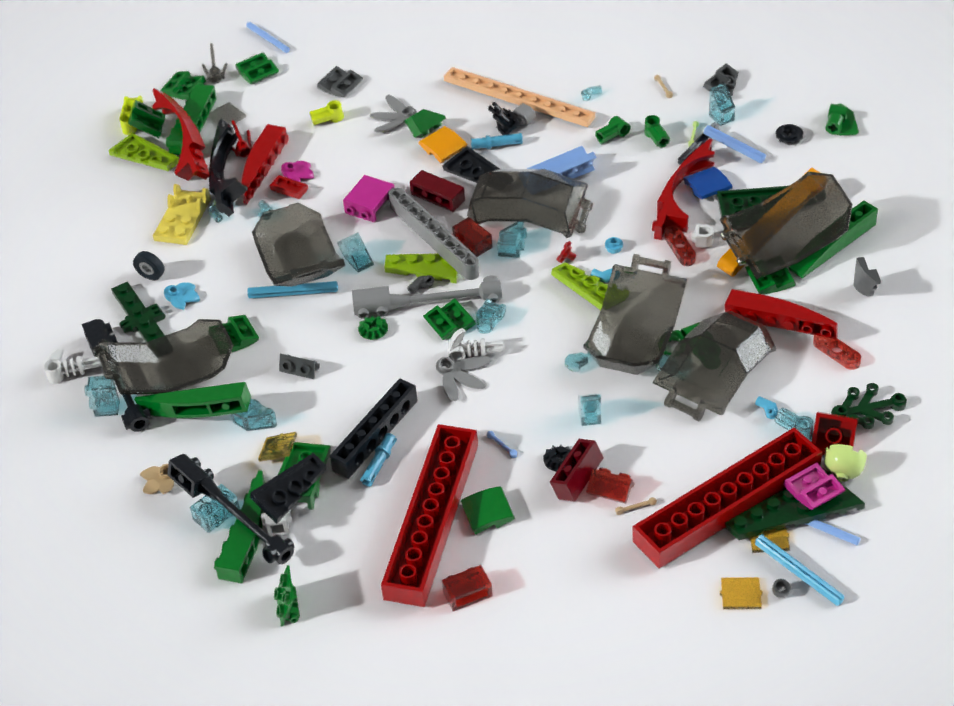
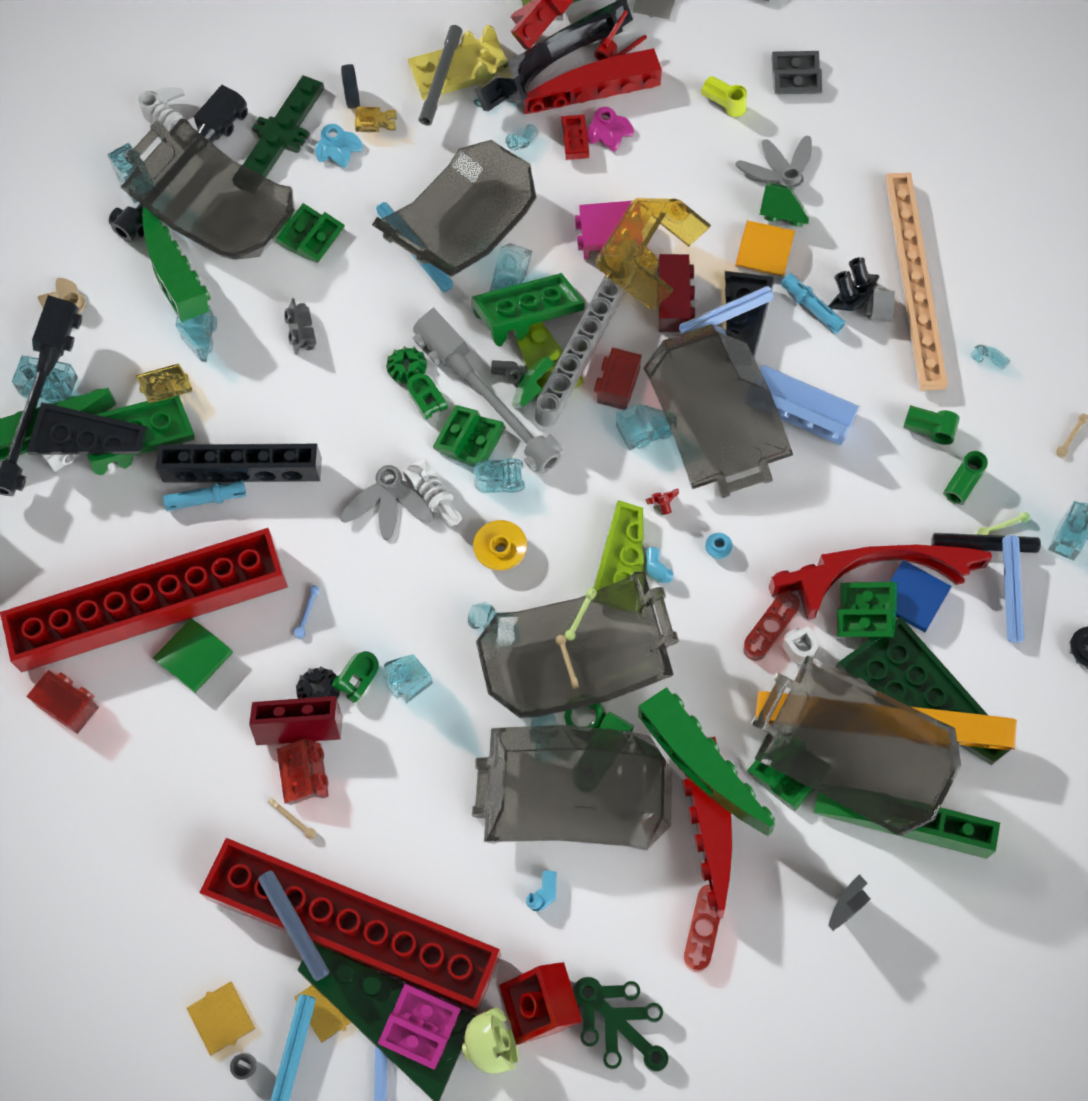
camera: 55 degrees right, 20 degrees up
(168, 208) = (430, 105): none -> dark grey piece
(181, 270) = (371, 119): none -> clear yellow plate
(388, 252) = (525, 305): none -> green hinge
(401, 184) = (625, 252): none -> clear yellow windscreen
(404, 326) = (421, 388): none -> green plate
(445, 267) = (528, 386): none -> green slope
(472, 172) = (729, 310): none -> light blue axle
(536, 333) = (498, 534): none -> yellow dish
(567, 432) = (362, 667): none -> green plate
(619, 326) = (590, 595): none -> yellowish green hinge
(650, 337) = (561, 640): none -> tan hinge
(702, 201) = (867, 609): none -> green slope
(715, 511) = (293, 925): none -> sand blue axle
(745, 294) = (700, 759): none -> green slope
(790, 420) = (530, 939): clear light blue piece -> none

